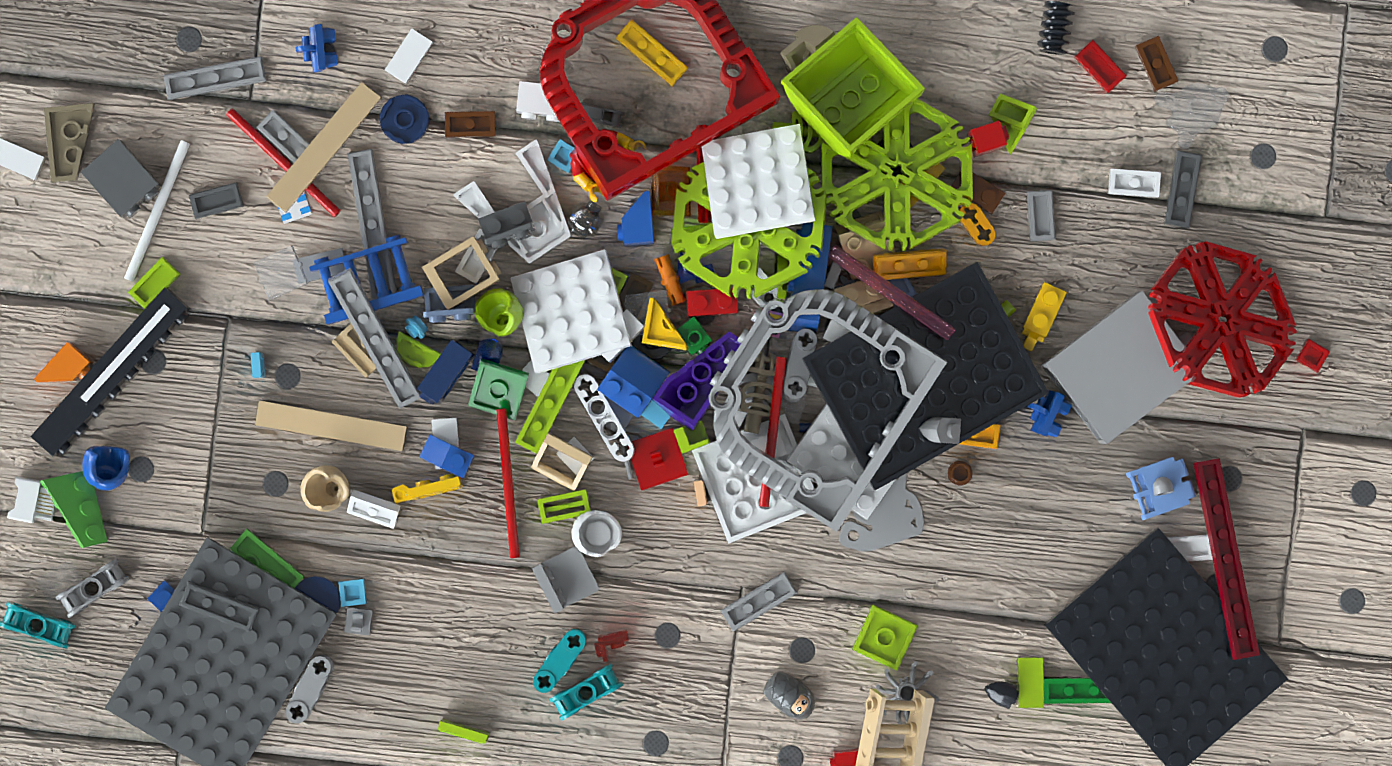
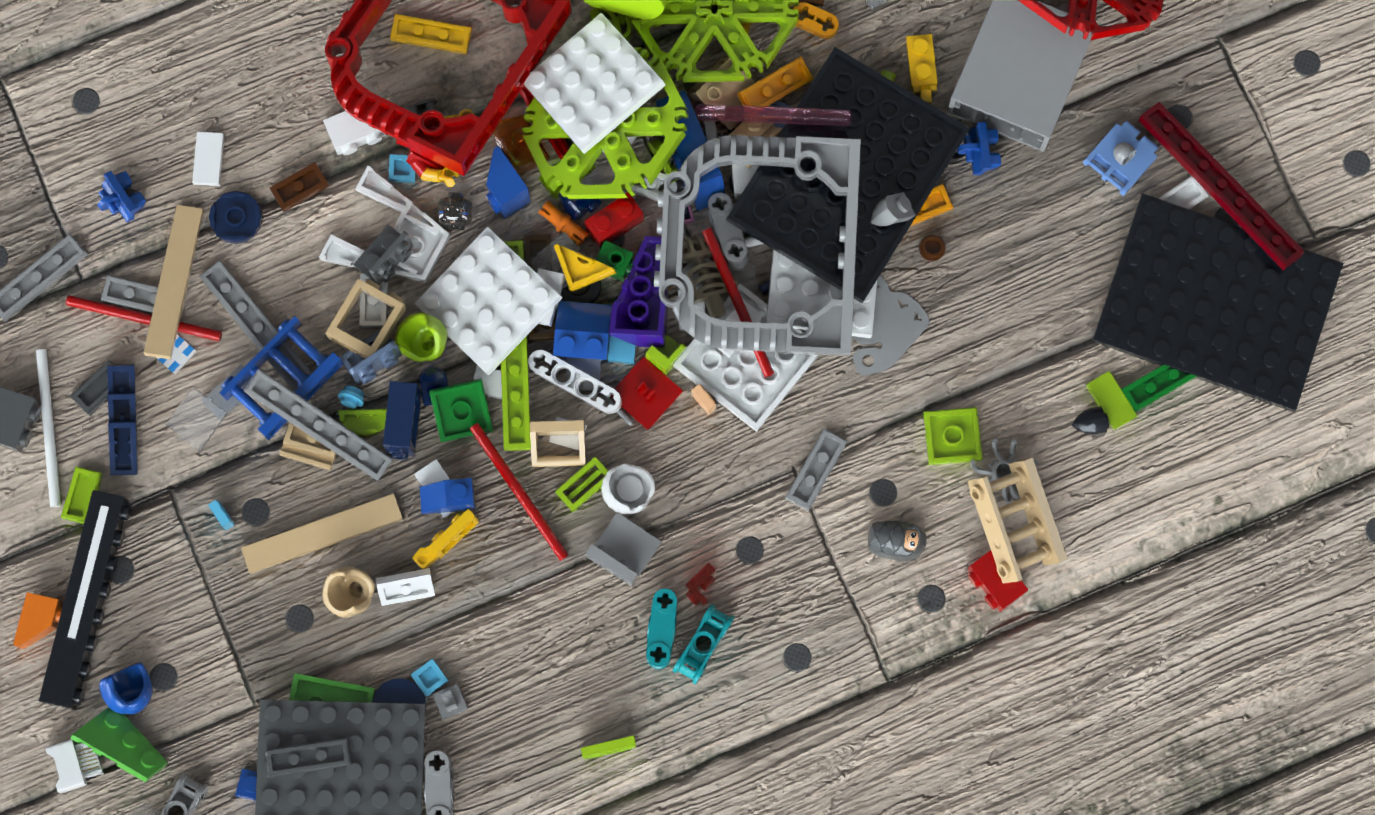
camera: 25 degrees left, 10 degrees down
(220, 239) = (122, 419): none -> dark blue slope

